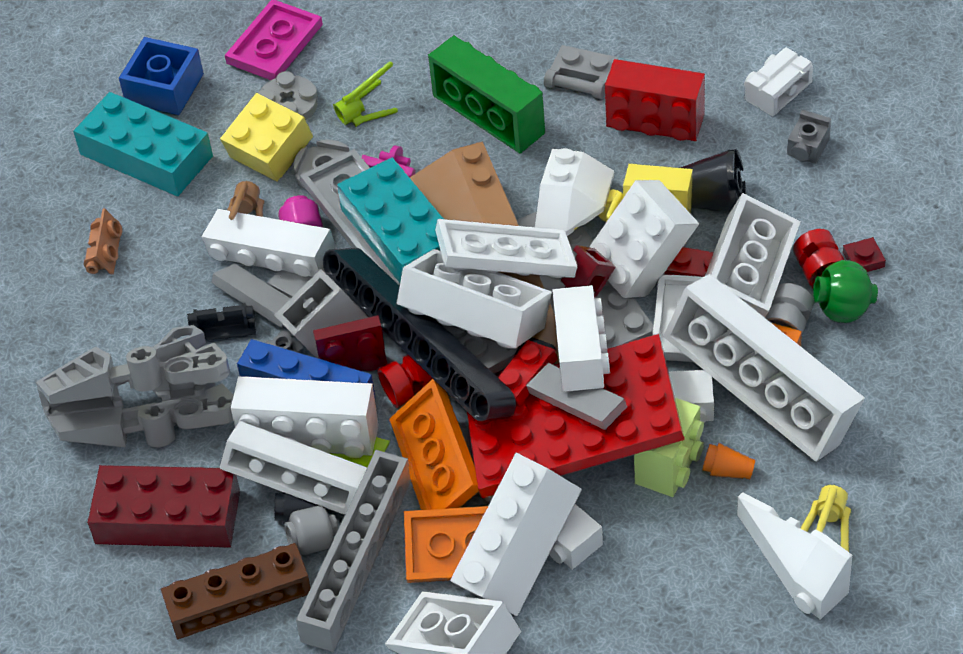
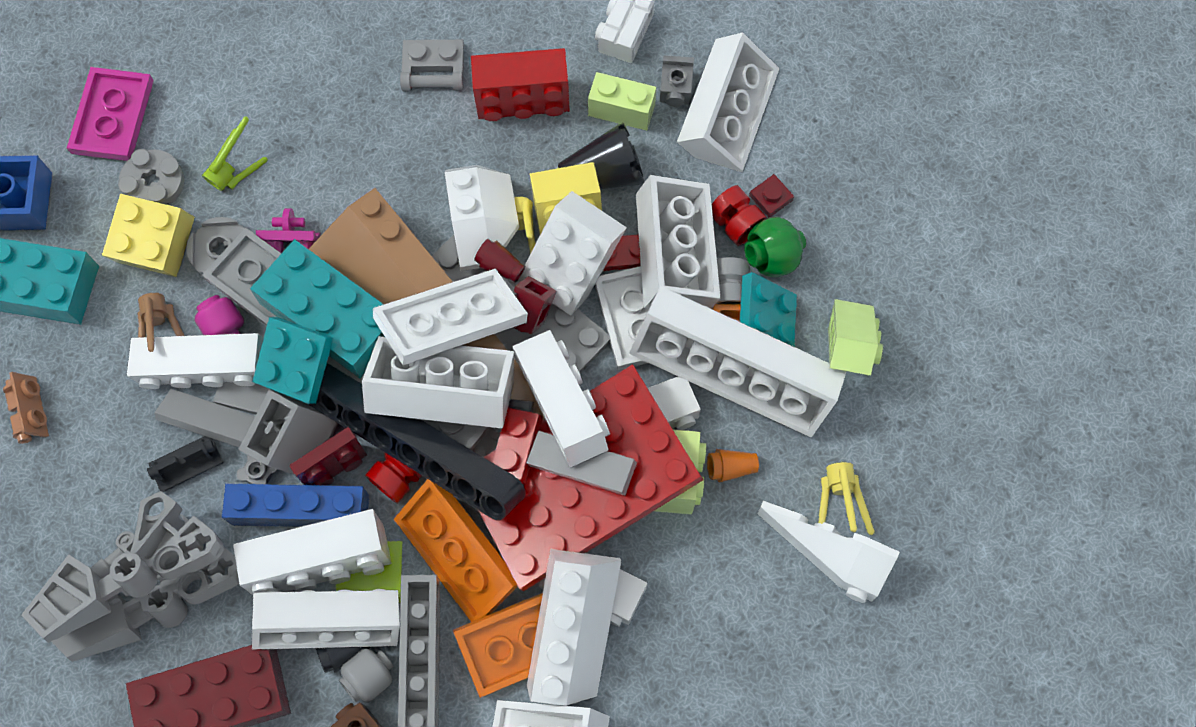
camera: 25 degrees left, 20 degrees up
(351, 249) = (292, 360): none -> teal plate
(487, 94) = (353, 122): green brick -> none
(568, 219) = (495, 256): none -> dark red cone
(755, 140) = (621, 101): none -> yellowish green brick
(818, 335) = (768, 308): none -> teal plate
(853, 167) = (729, 102): none -> white slope
(886, 377) = (854, 337): none -> yellowish green brick

